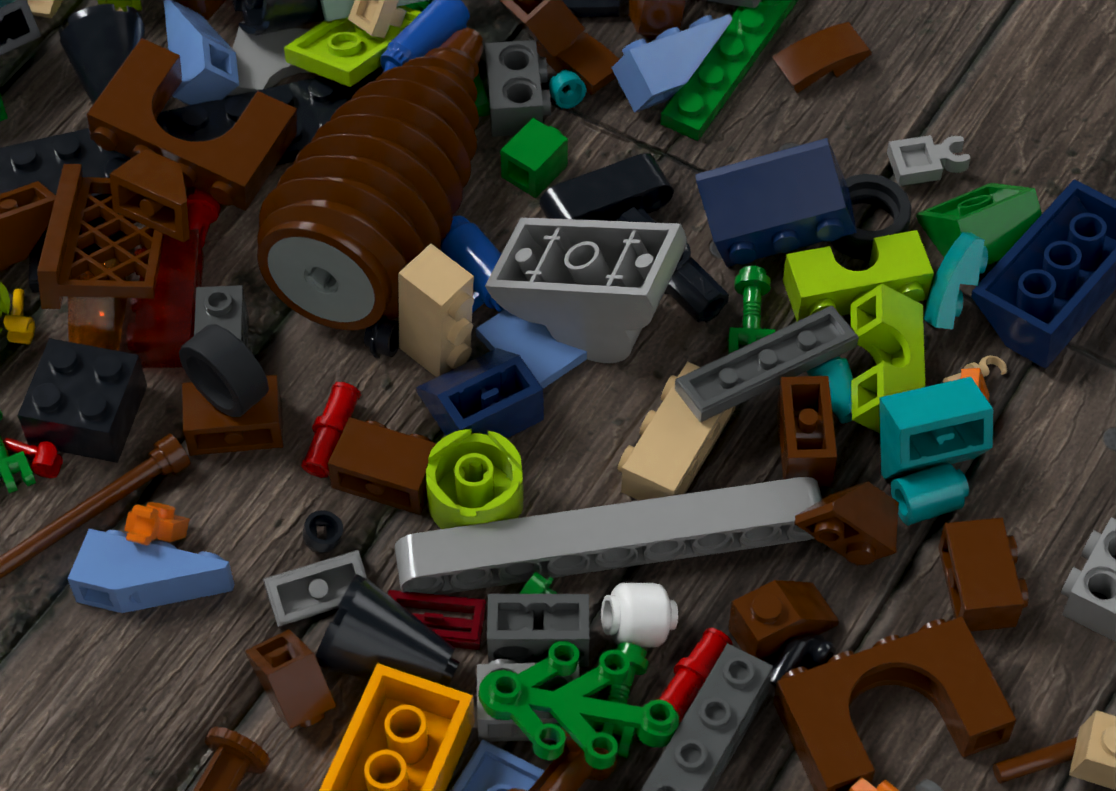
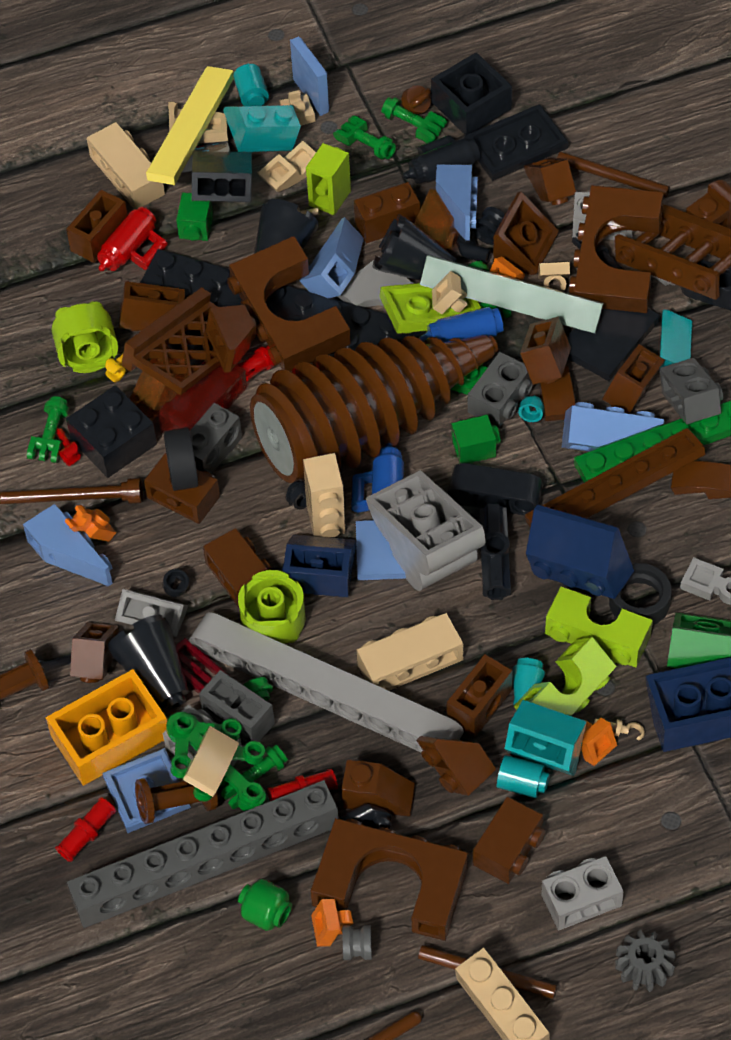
camera: 40 degrees right, 0 degrees up
(330, 427) = (240, 521): red pin -> none
(589, 709) = (211, 761): none -> tan slope
(639, 614) = (300, 736): white head -> none
(738, 107) = (628, 476): none -> reddish brown plate
(752, 284) = (533, 592): green hinge -> none
(764, 362) = (495, 641): dark grey tile -> none
(961, 265) = (651, 660): teal slope -> none

